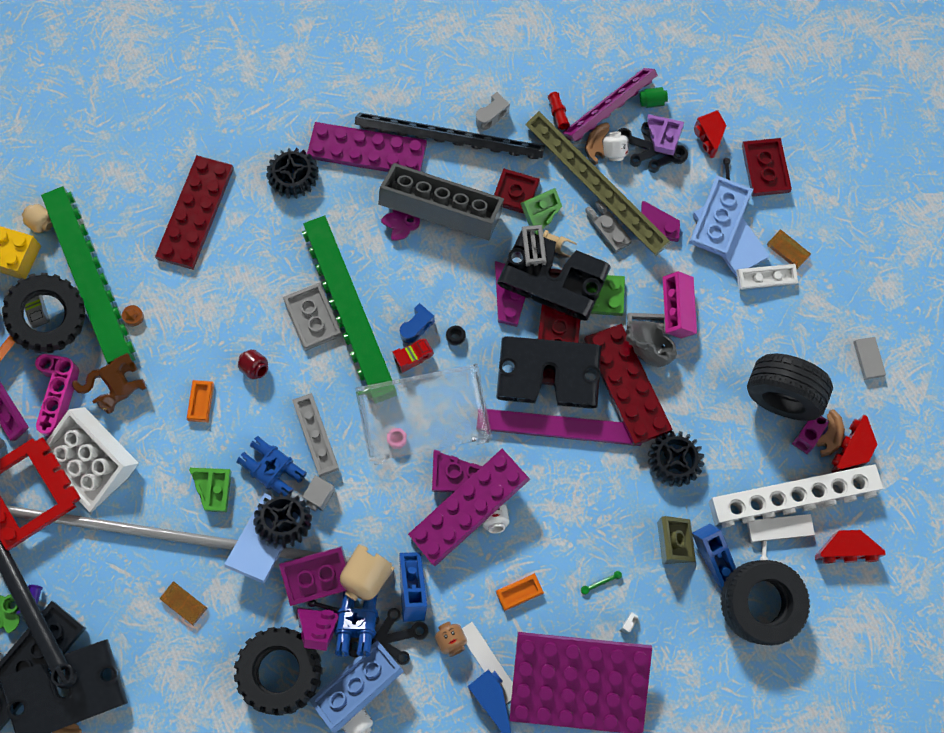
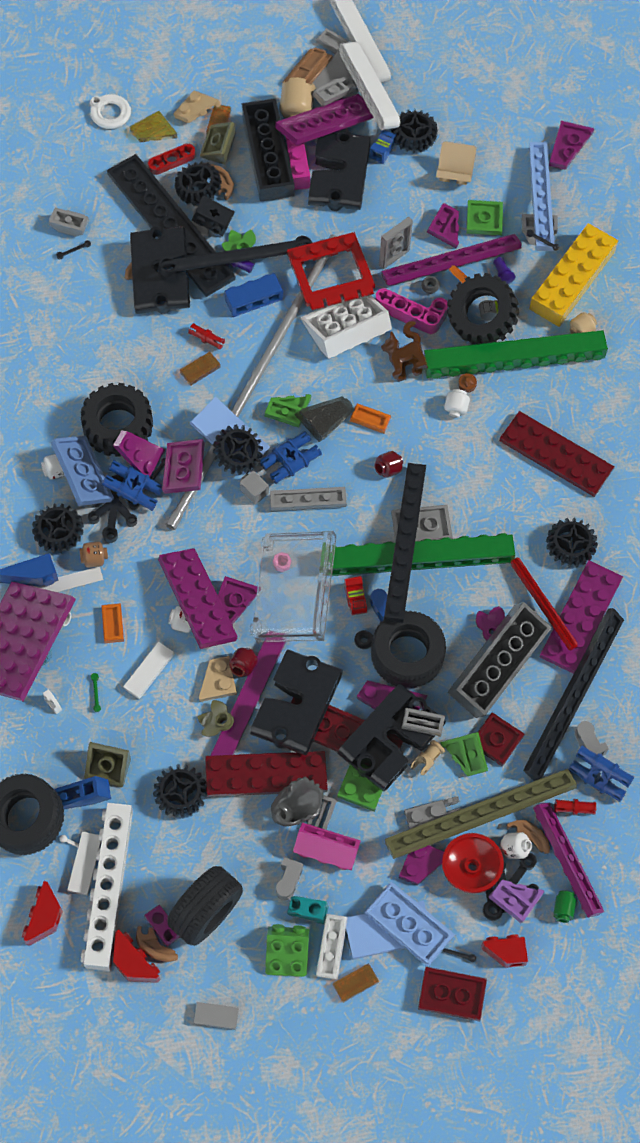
camera: 105 degrees right, 5 degrees down
(13, 380) = (430, 280): none -> dark grey plate
(72, 572) = (253, 294): none -> blue brick
(140, 608) = (206, 336): none -> red pin
(161, 317) = (457, 403): none -> white head
(214, 442) = (325, 416): none -> clear smoke slope
(342, 318) = (405, 543): none -> black plate
(365, 574) = (168, 497): tan cylinder -> none
(367, 180) = (544, 604): none -> red axle
(412, 587) = (147, 537): blue slope -> none
(446, 694) = (61, 516): none -> black gear
(452, 262) = (399, 672): none -> black tyre
(521, 440) = (243, 662): none -> dark red head
(522, 93) = (609, 771): none -> blue pin
(545, 462) = (218, 680): none -> tan wing
(559, 535) = (148, 670): none -> white tile
(590, 452) = (213, 720): none -> olive plate
(647, 165) = (477, 851): none -> red dish
(721, 330) = (286, 887): none -> light grey leg
(742, 305) = (308, 909): none -> teal leg
(784, 312) = (287, 950): none -> bright green bracket

